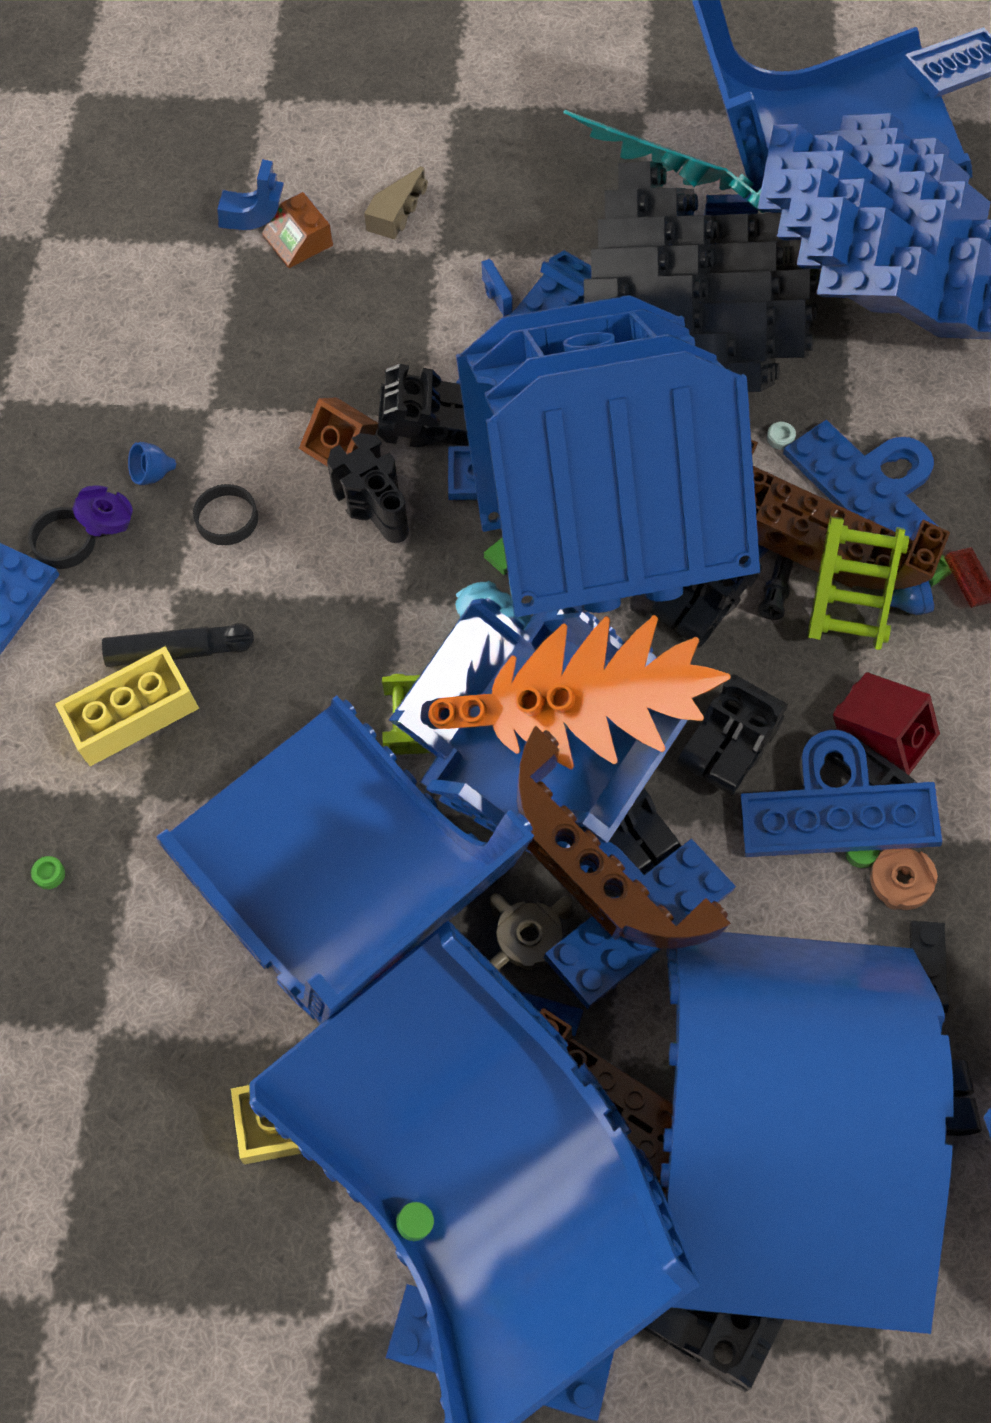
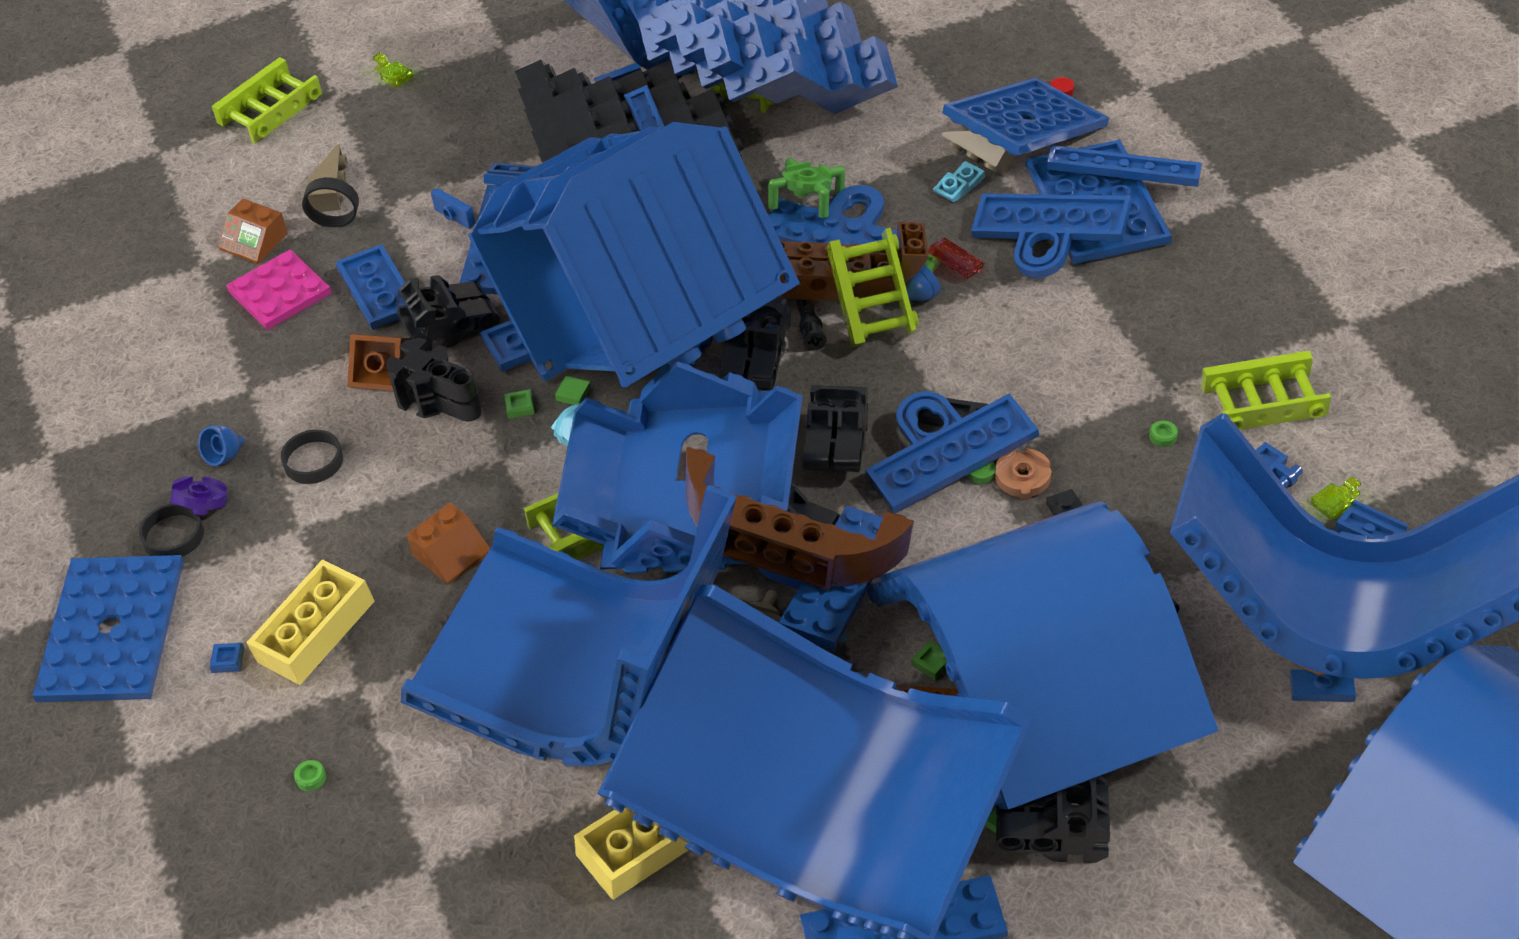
camera: 25 degrees left, 15 degrees down
(41, 702) = (227, 657): none -> blue tile
(179, 643) = (341, 554): black piece -> none
(255, 208) = (205, 227): blue arch -> none
(291, 307) = (278, 289): none -> dark pink plate
(296, 678) = (447, 543): none -> dark orange slope
(379, 342) = (373, 284): none -> blue plate
(381, 66) = (258, 87): none -> lime fence
(389, 219) = (330, 184): none -> black tyre
(415, 1221) = (782, 860): bright green tile -> none
(446, 545) = (519, 403): none -> bright green tile
(522, 100) = (394, 73): none -> clear neon green plate
(587, 692) = (708, 421): orange plant -> none
(693, 170) = (577, 56): teal plant -> none
(722, 272) = (643, 108): none -> blue plate
(867, 423) = (806, 179): none -> bright green plate
(889, 719) = (951, 369): dark red slope -> none

